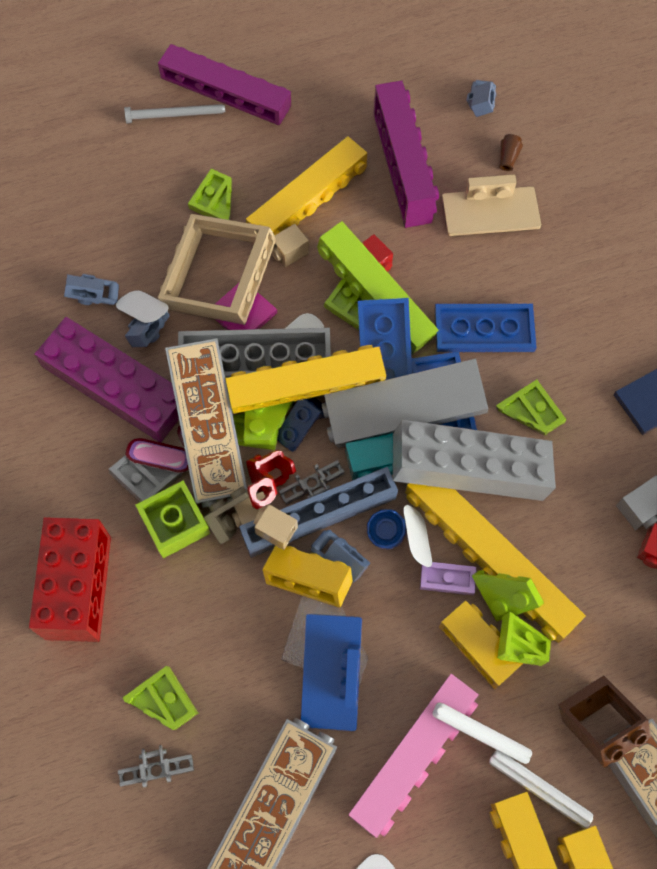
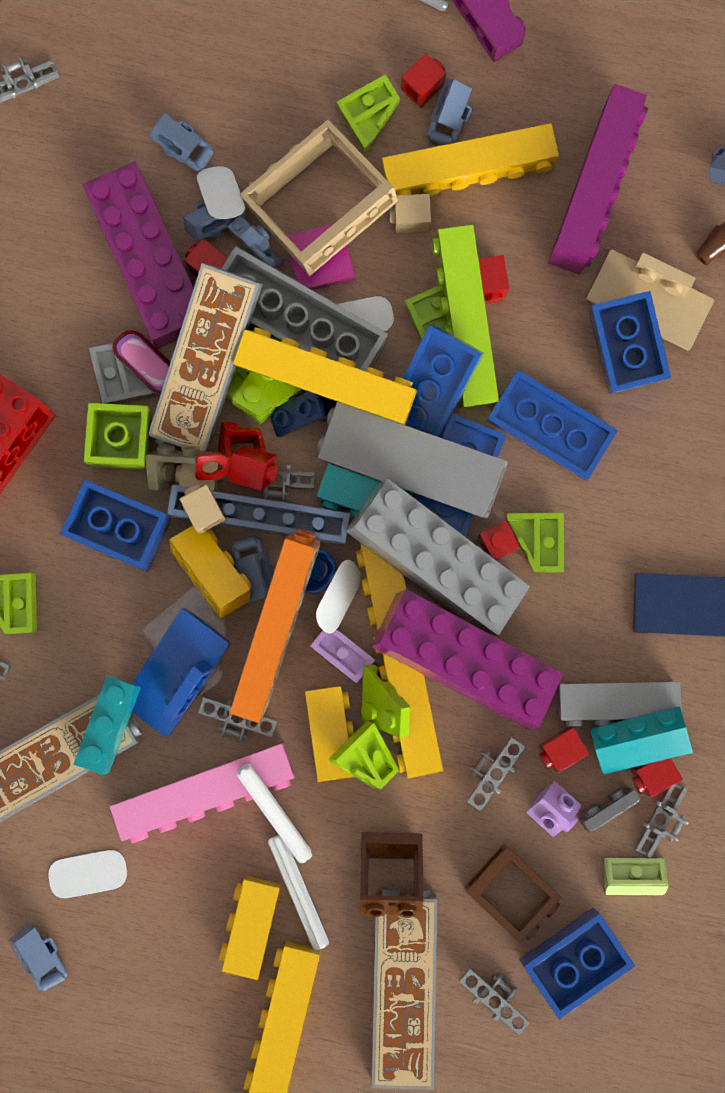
camera: 30 degrees right, 15 degrees up
(156, 358) = (201, 254): none -> red brick
(183, 322) = (254, 241): none -> sand blue piece
(212, 587) = (116, 525): none -> blue brick
(240, 159) = (423, 80): none -> red brick
(272, 167) = (450, 111): none -> sand blue piece
(293, 478) = (253, 468): none -> red brick
(306, 743) = (107, 725): none -> teal brick
(389, 581) = (275, 625): none -> orange brick
(411, 680) = (227, 718): none -> light grey piece
(500, 241) = (629, 342): none -> blue brick
(506, 422) = (498, 541): none -> red brick
(545, 520) = (467, 659): none -> magenta brick
(617, 587) = (496, 764): none -> light grey piece

